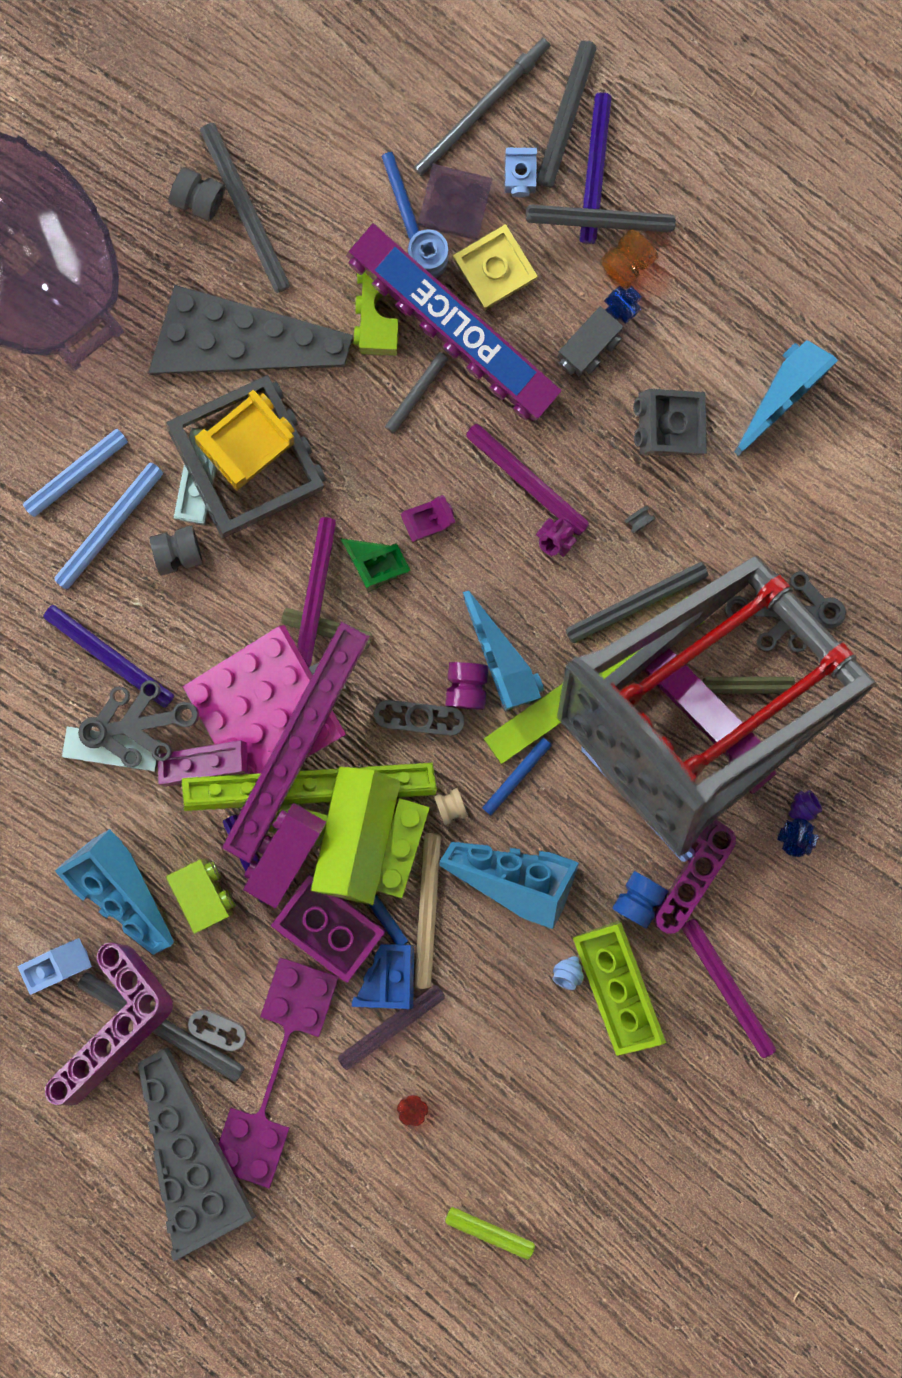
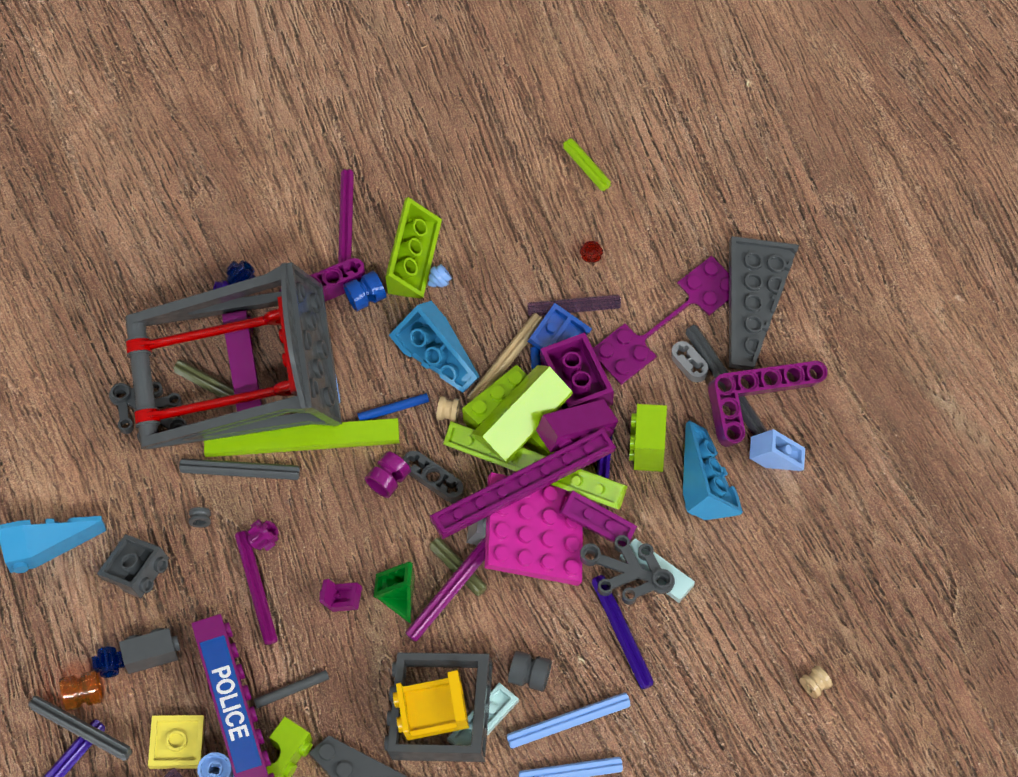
camera: 140 degrees left, 25 degrees down
(508, 669) = (354, 464): dark azure wedge -> none

